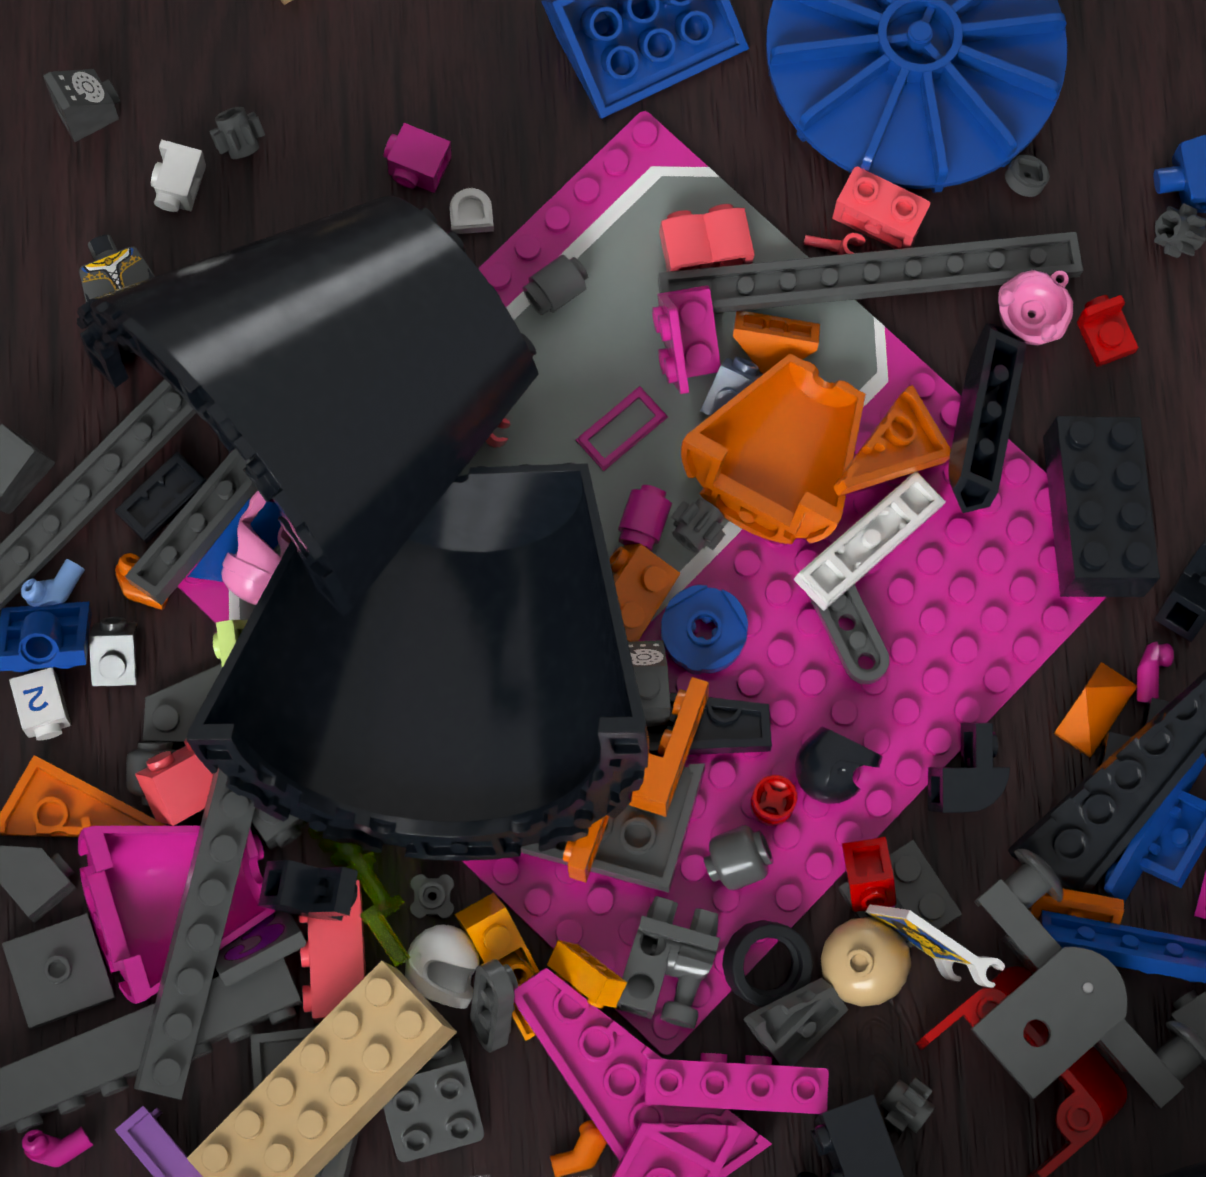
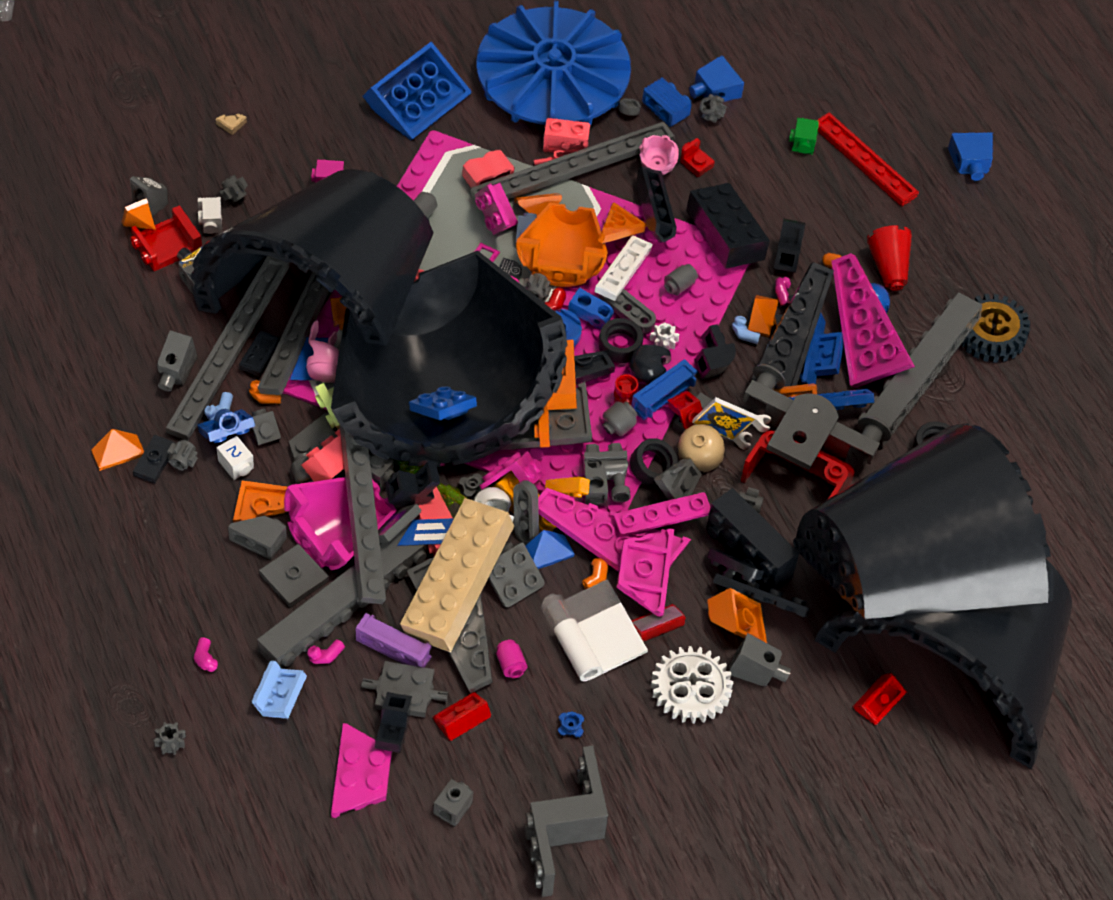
camera: 20 degrees left, 20 degrees down
(48, 145) = (138, 215): none -> orange slope
(81, 203) = (162, 245): none -> red panel
(310, 980) = (426, 532): none -> blue sticker
(423, 740) = (443, 403): none -> blue plate
(512, 1074) = (549, 549): none -> slope
(514, 907) = (522, 466): none -> dark pink bracket
(664, 468) = (511, 268): none -> black tile
(722, 566) = (557, 299): none -> red arm
(777, 606) = (590, 308): none -> blue leg
(800, 657) = (624, 326): none -> black tyre
(843, 822) = (664, 388): none -> blue container
(885, 722) = (664, 336): none -> white gear
(967, 595) = (680, 279): none -> dark grey brick
(1042, 733) = (742, 331): none -> light blue arm
(1101, 187) = (666, 101): none -> blue brick

